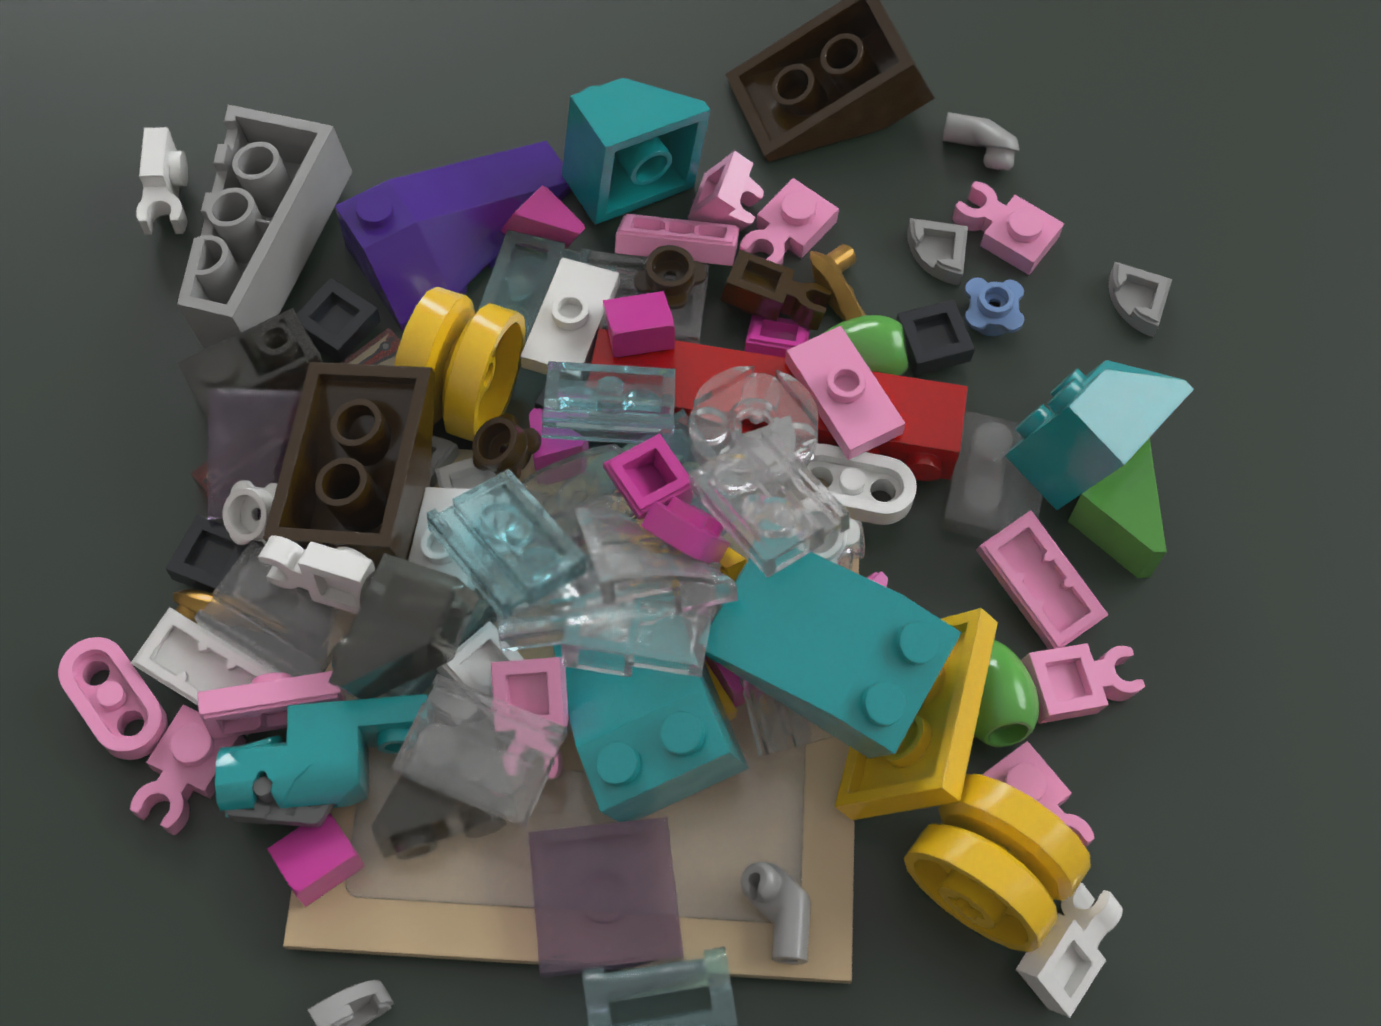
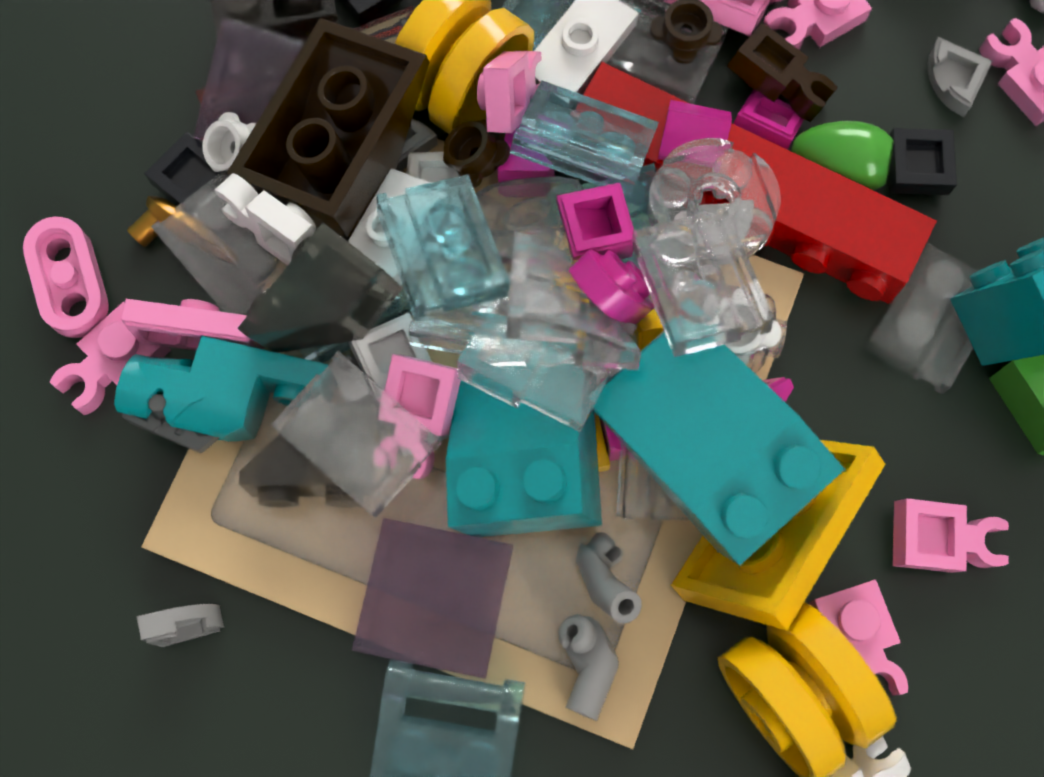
camera: 20 degrees right, 10 degrees up
(193, 658) = (144, 265): white plate -> none
(315, 859) = (189, 481): dark pink slope -> none
(520, 378) = (507, 88): none -> bright pink plate
(639, 324) = (640, 68): dark pink slope -> none
(706, 360) = (692, 122): none -> dark pink slope
(770, 829) = (603, 587): none -> light grey arm
(828, 272) = (840, 69): pearl gold bar -> none
(845, 392) = (814, 192): bright pink plate -> none
(857, 478) = (801, 274): white plate -> none
(990, 319) = (983, 160): medium blue plate -> none
(1008, 700) = (871, 538): bright green animal -> none
(1041, 581) = (943, 432): bright pink plate -> none

